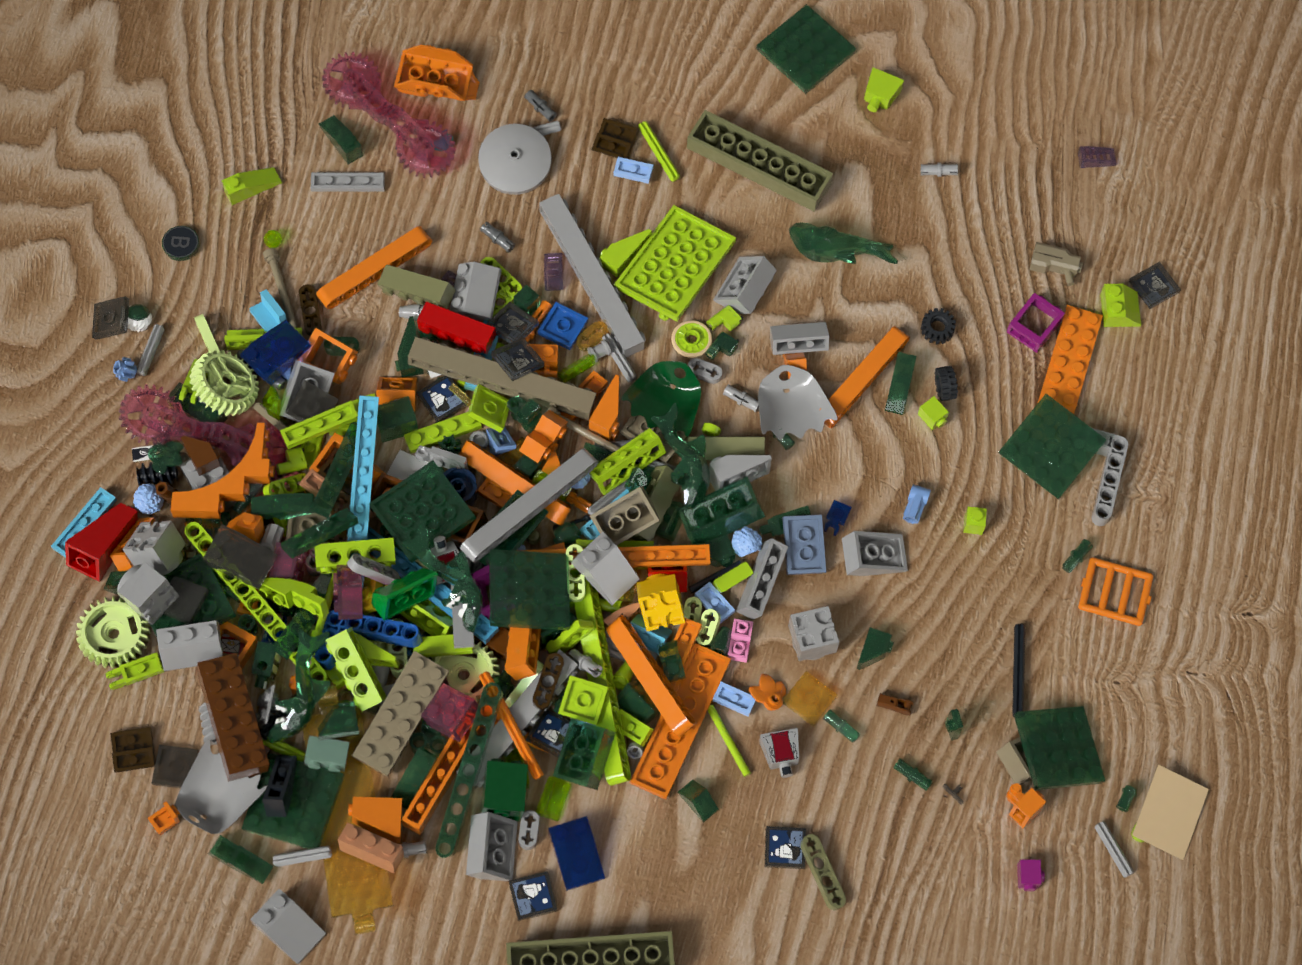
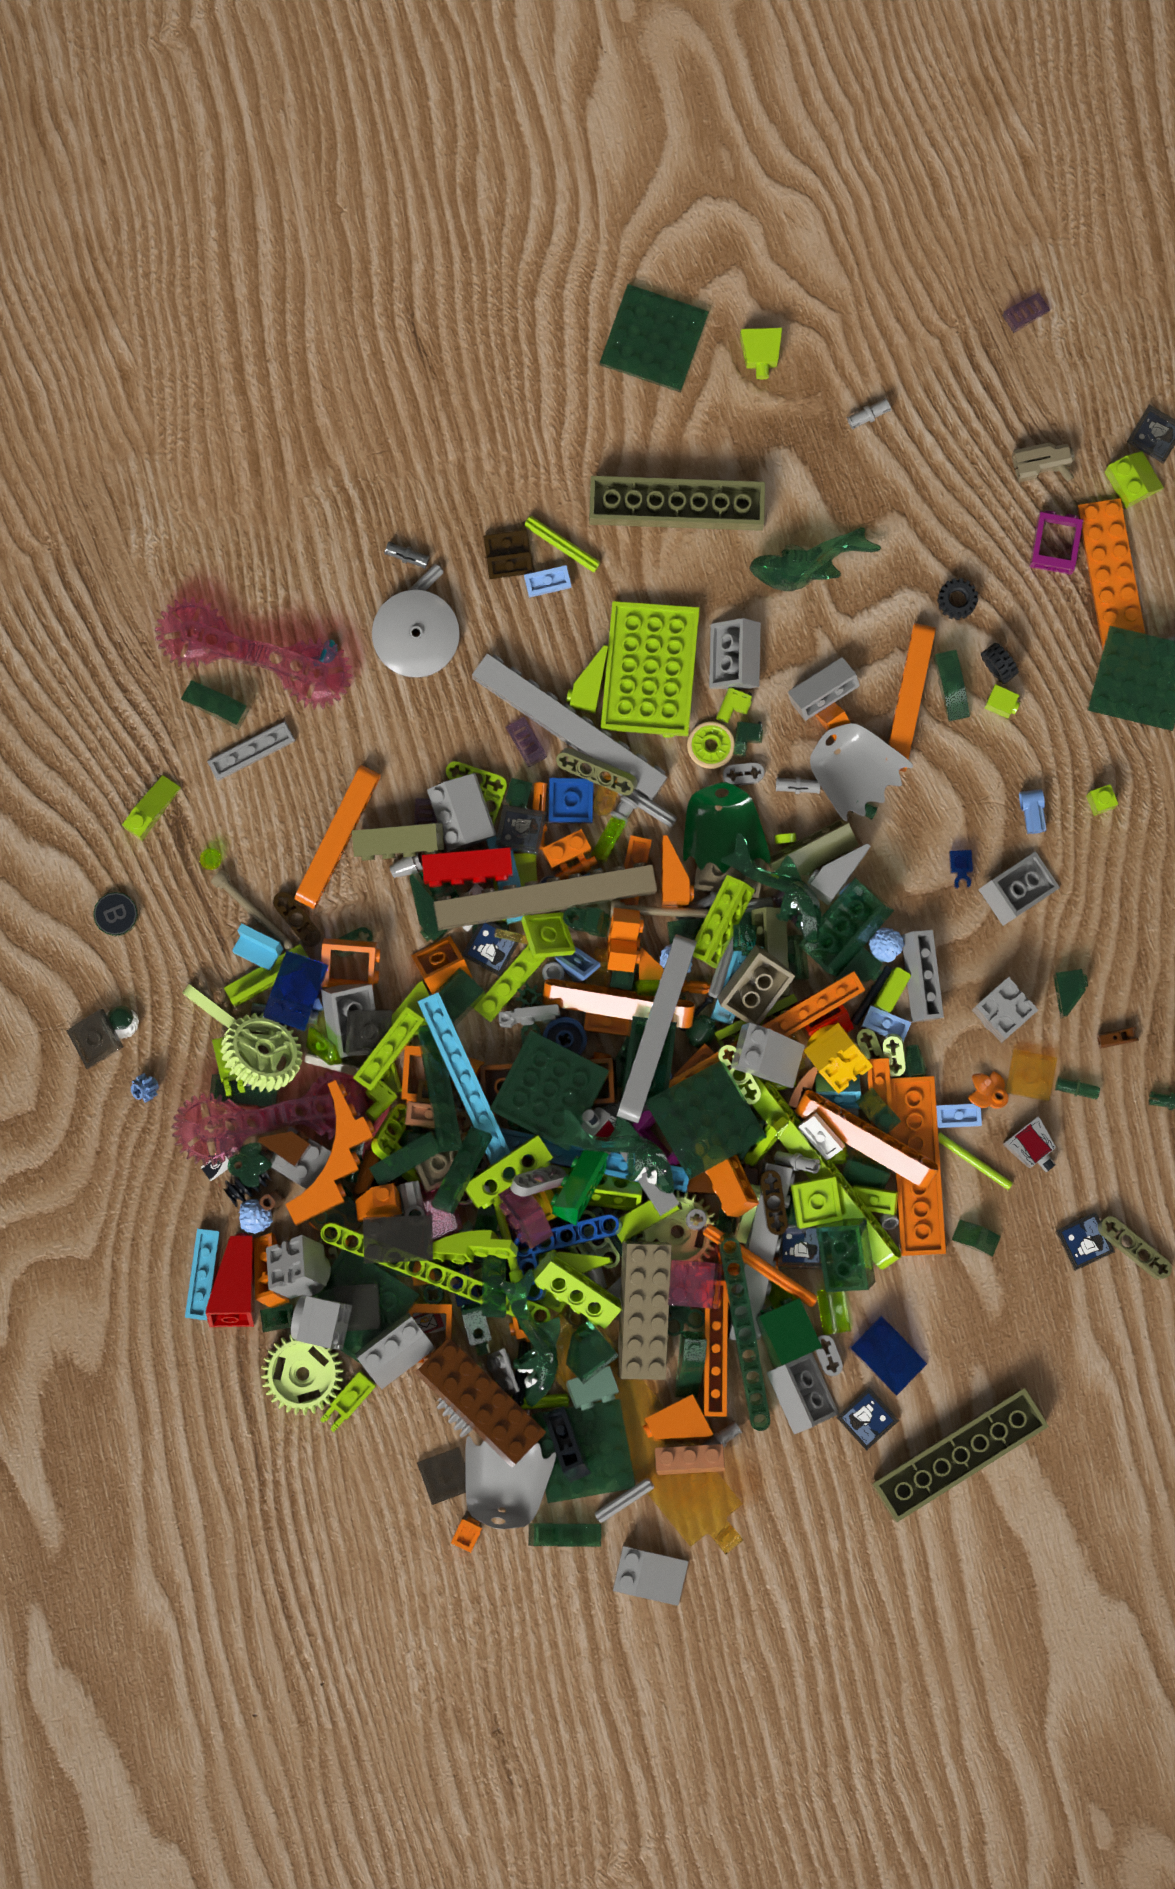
camera: 30 degrees left, 15 degrees up
(132, 749) = (393, 1481): dark brown slope -> none
(150, 350) = (156, 1051): light grey axle -> none
(405, 465) = (496, 1043): white sticker -> none
(436, 72) = (278, 579): orange slope -> none
(479, 662) = (691, 1214): none -> light grey bush
(497, 237) = (446, 733): dark grey pin -> none
(517, 359) = (552, 870): clear smoke tile -> none
(594, 309) = (596, 774): none -> olive beam
(615, 654) = (821, 1136): none -> white plate
(740, 640) = (931, 1050): bright pink slope -> none
(775, 524) = (915, 899): clear green hinge -> none
(805, 544) = (946, 915): sand blue plate -> none

